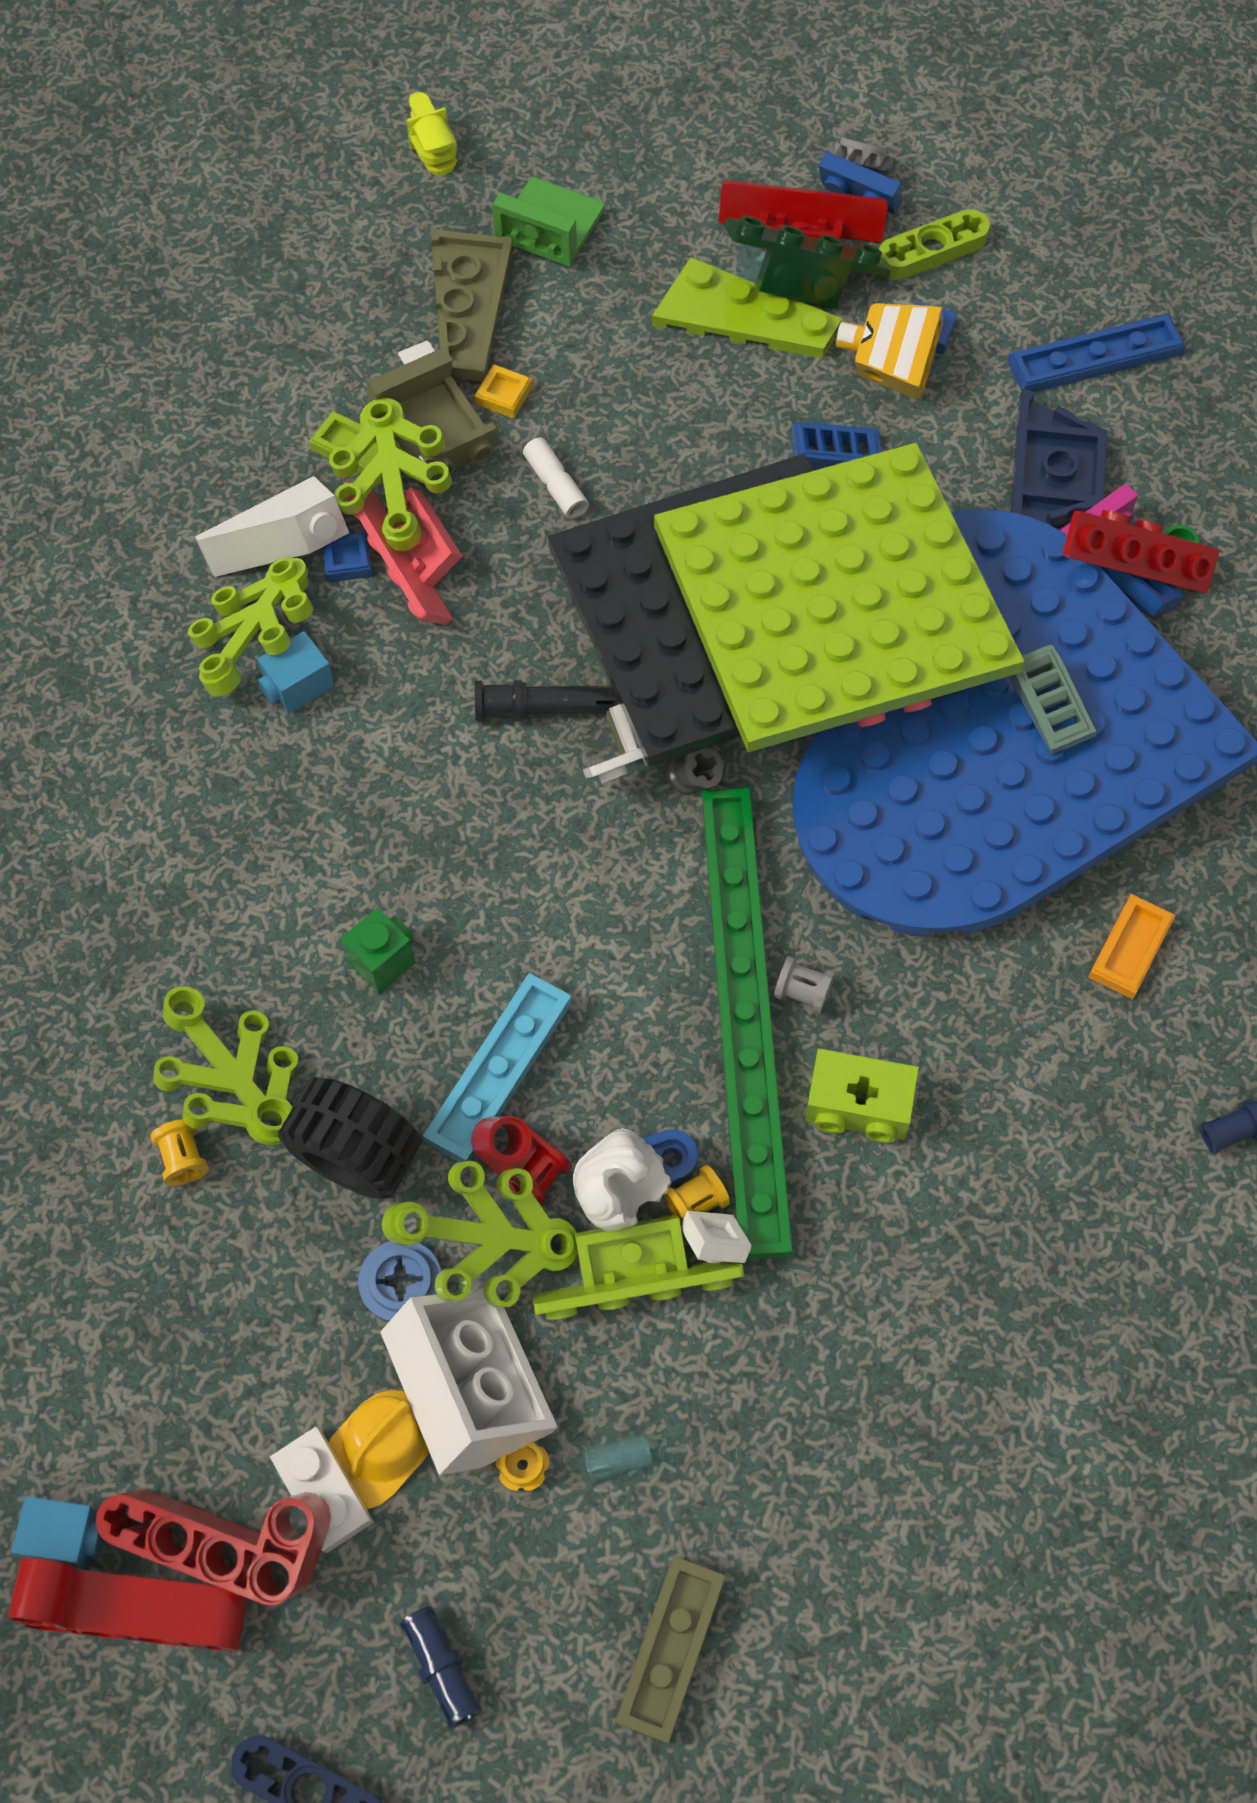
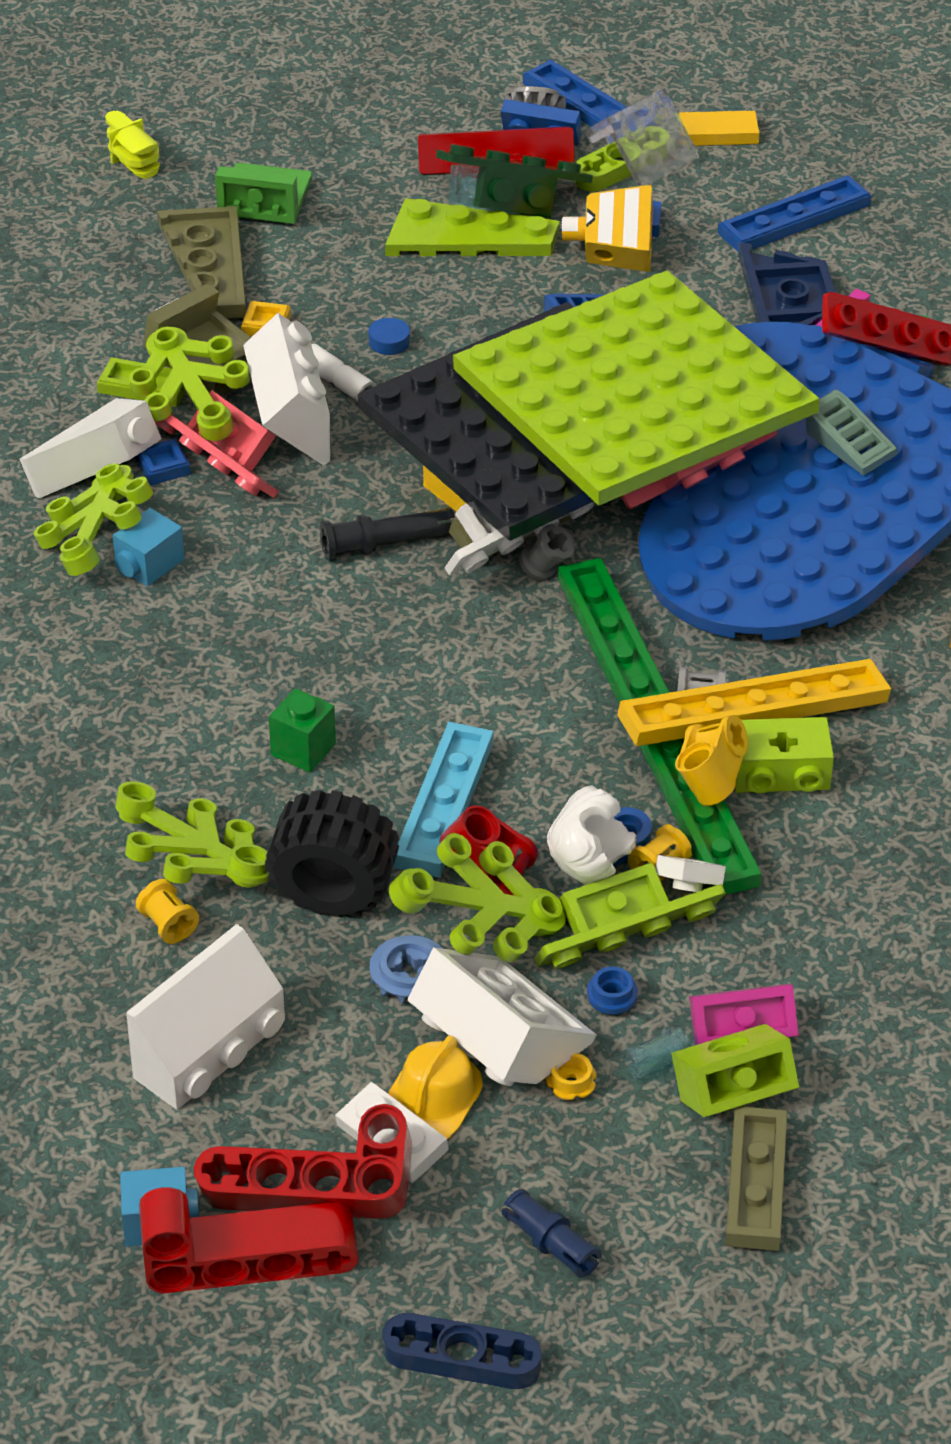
camera: 15 degrees left, 20 degrees down
(166, 1317) = (204, 1019): none -> white slope
(486, 503) = (290, 386): none -> white slope
(596, 1346) = (612, 990): none -> blue plate
(622, 437) = (389, 336): none -> blue tile
(685, 1513) = (735, 1070): none -> lime brick
(719, 1434) = (737, 1010): none -> dark pink plate
(774, 1101) = (713, 758): none -> yellow piece
(850, 1023) = (768, 697): none -> yellow plate
(919, 158) = (579, 94): none -> blue tile
(965, 226) = (648, 138): none -> clear bracket
(1049, 220) = (721, 127): none -> yellow tile

